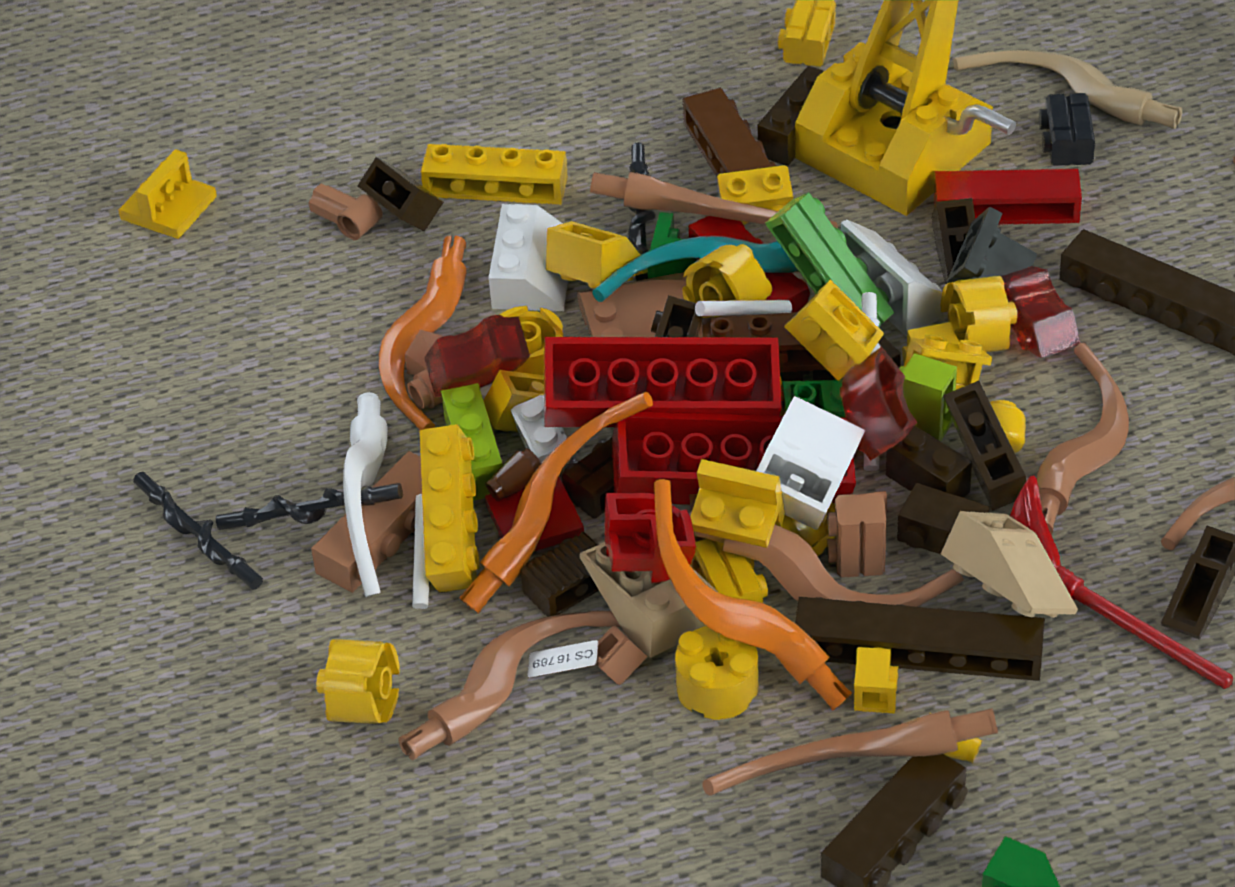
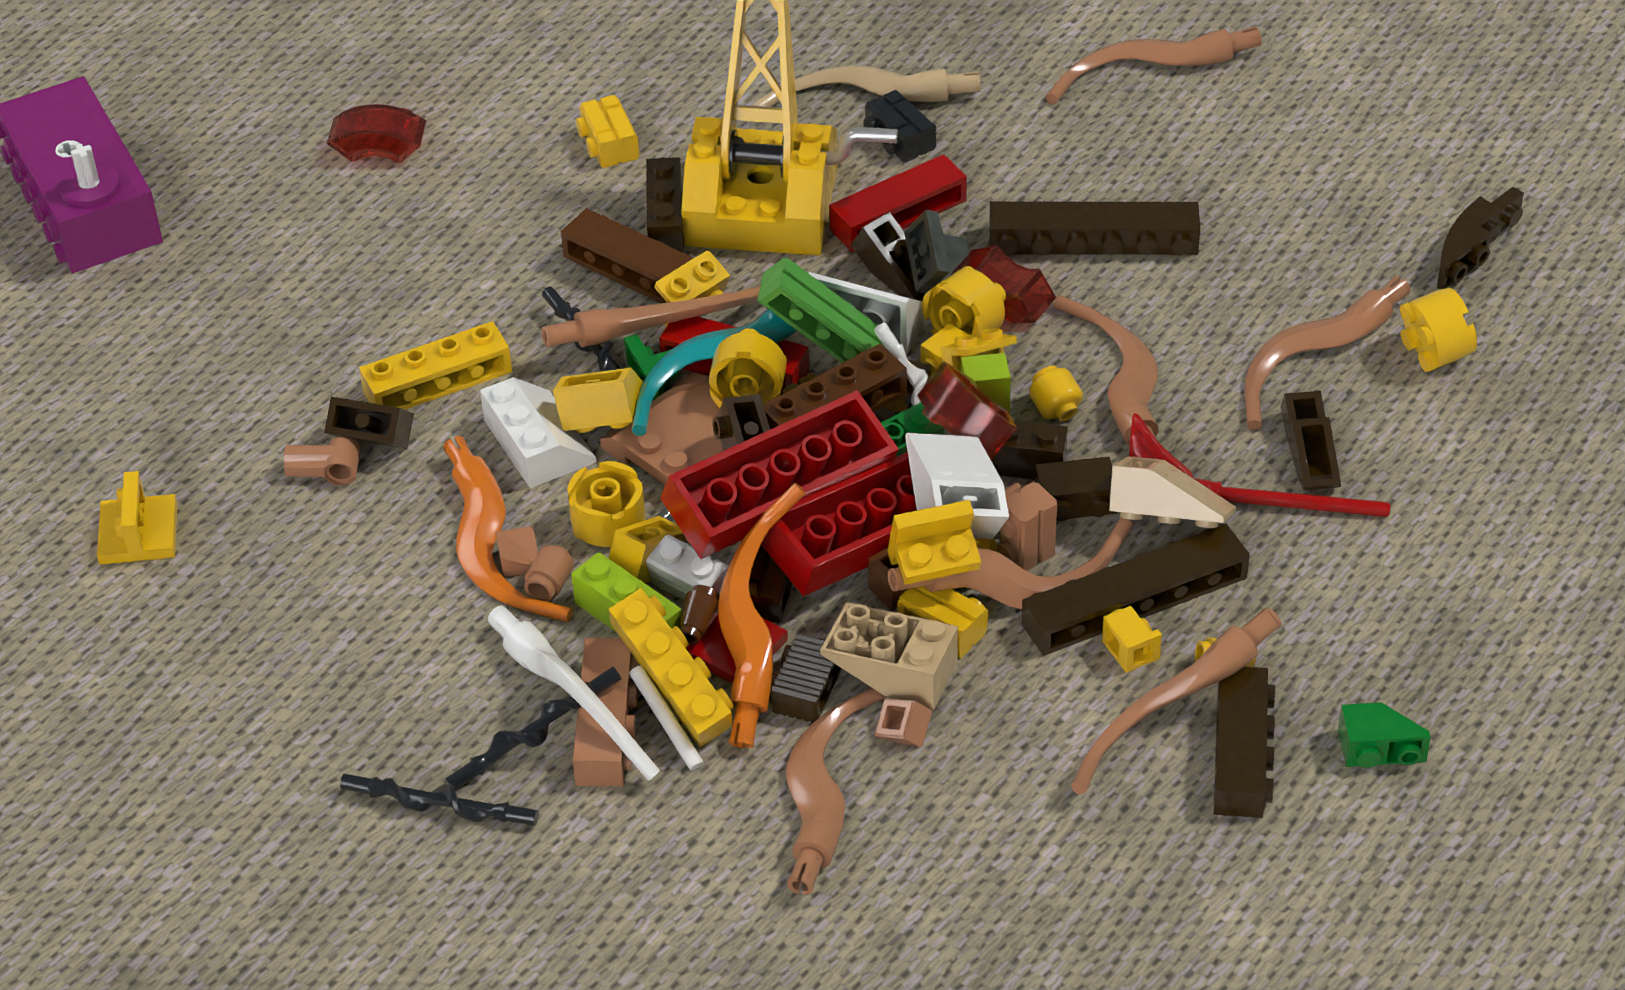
camera: 35 degrees left, 0 degrees up
(359, 681) = (716, 850): yellow brick -> none
(477, 354) = (584, 526): clear red brick -> none
(562, 658) = (860, 748): white sticker -> none
(633, 537) = (880, 604): red brick -> none
(715, 674) = (1002, 692): yellow brick -> none
(740, 308) = (785, 383): white bar -> none
(741, 618) = (1009, 634): orange animal -> none
(835, 330) = (890, 367): yellow bracket -> none
(986, 445) = (1060, 402): dark brown slope -> none

